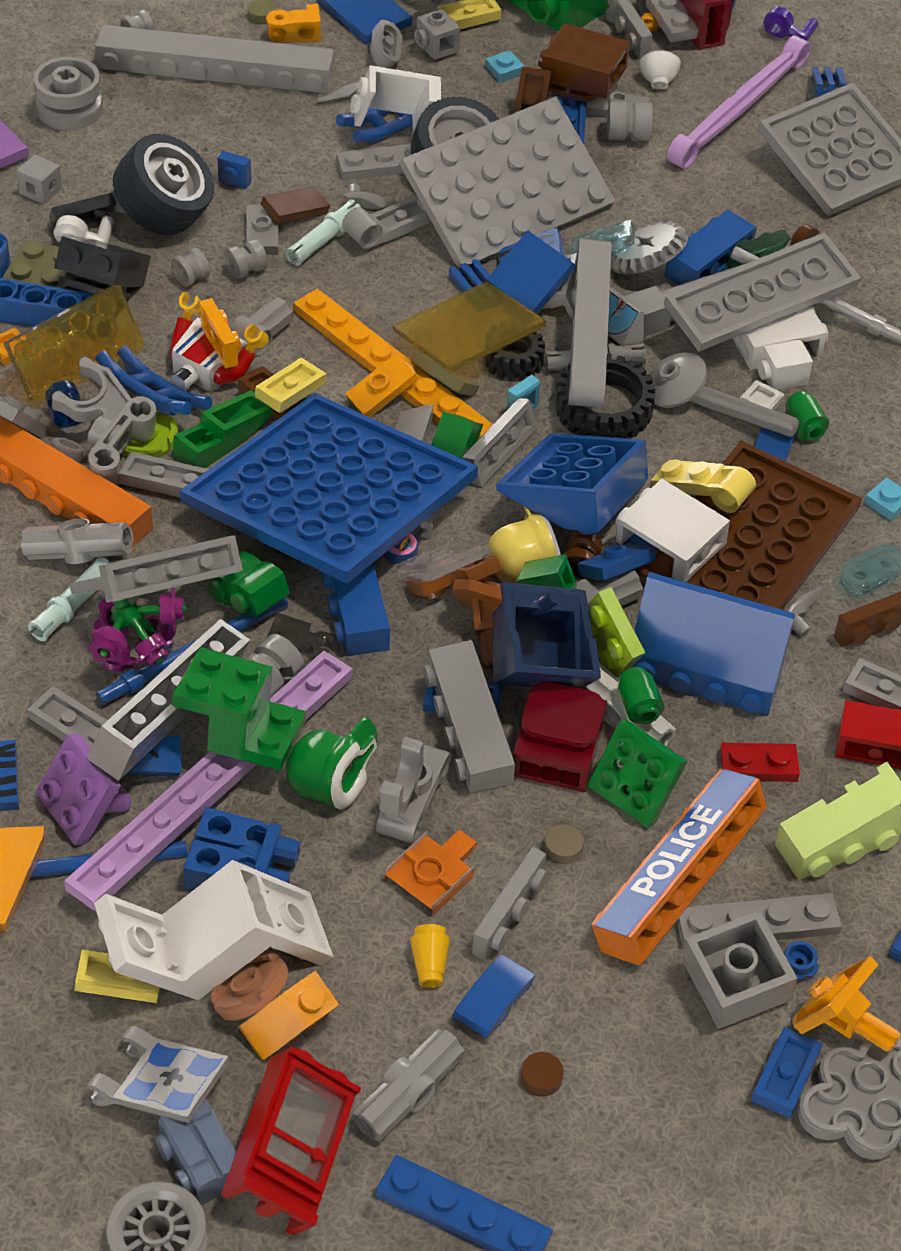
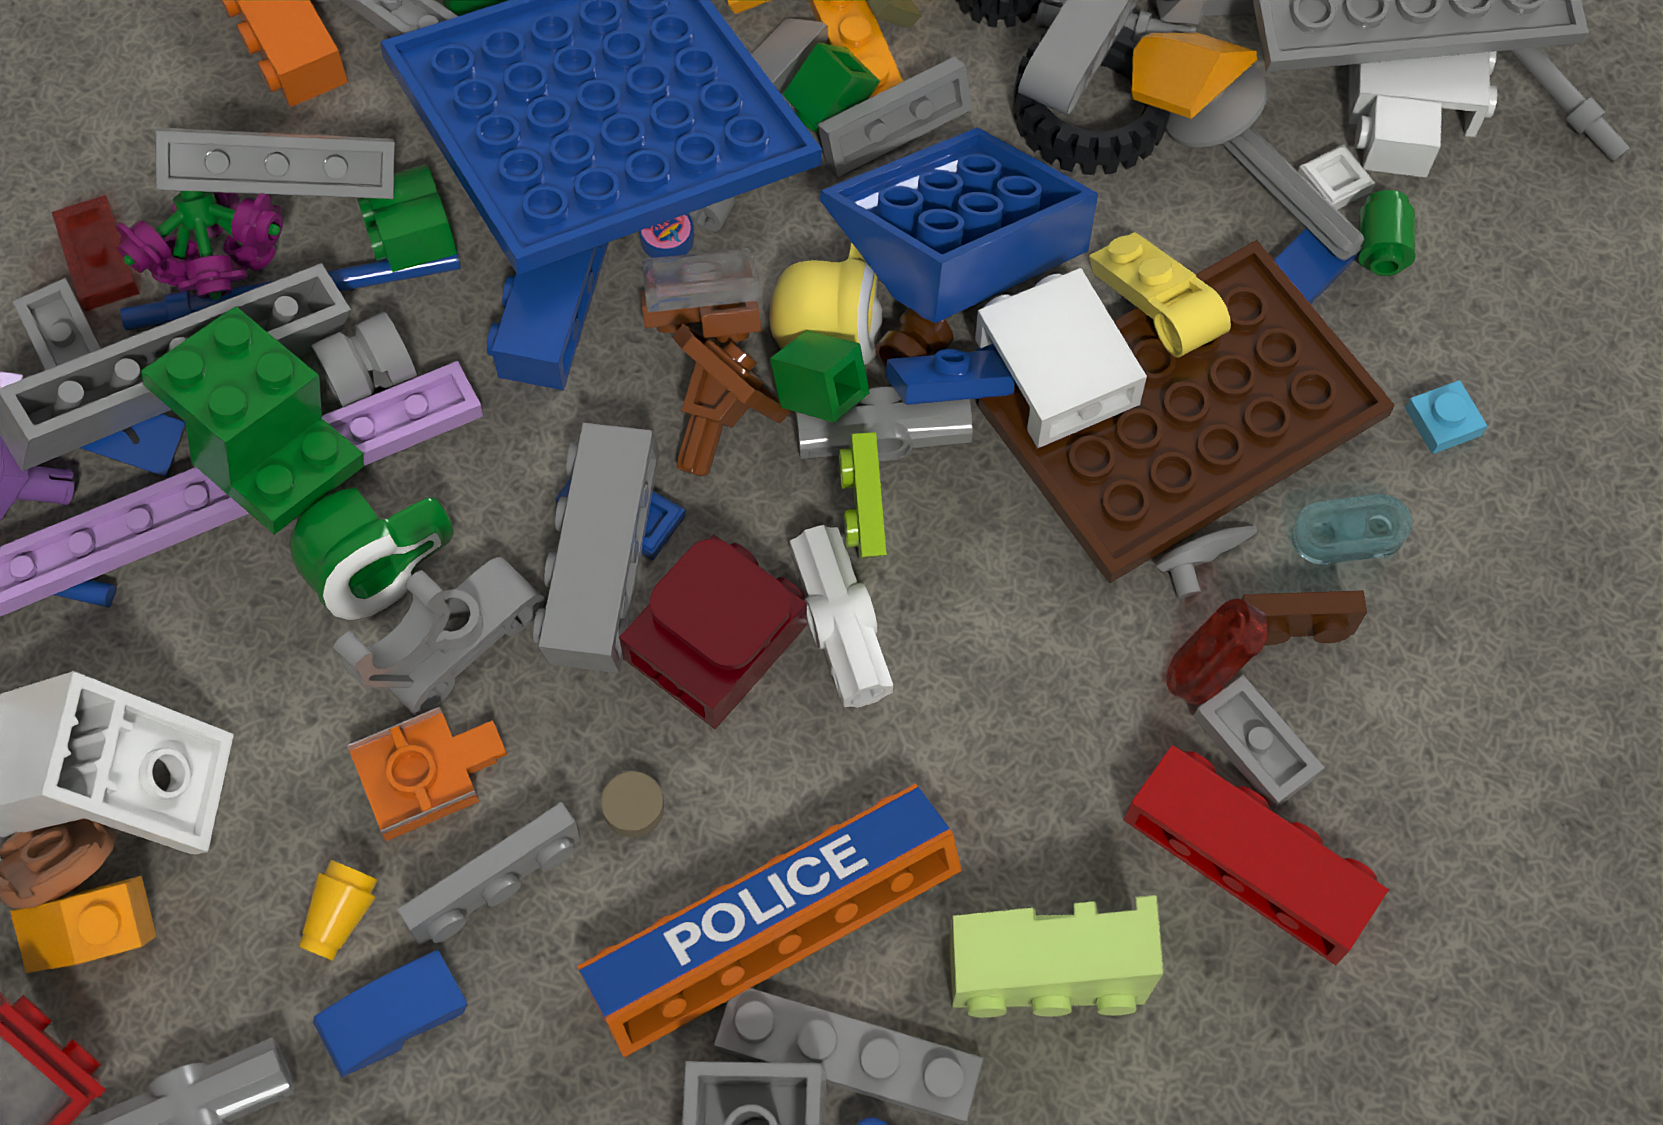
camera: 25 degrees right, 15 degrees up
(59, 667) = (92, 254): none -> clear red plate
(62, 608) = (140, 165): light aqua pin -> none
(77, 541) = (216, 68): light grey piece -> none
(237, 838) = (179, 654): blue hips -> none
(300, 636) = (434, 321): clear smoke plate -> none
(525, 389) = (976, 50): medium azure tile -> none
(543, 637) = (753, 468): dark blue piece -> none
(640, 695) = (850, 619): green brick -> none
(644, 764) = (787, 740): green plate -> none
(654, 364) = (1185, 70): none -> light orange slope
(712, 643) = (1003, 575): slope -> none
(761, 760) = (997, 786): red plate -> none
(840, 649) = (1217, 651): none -> clear red plate

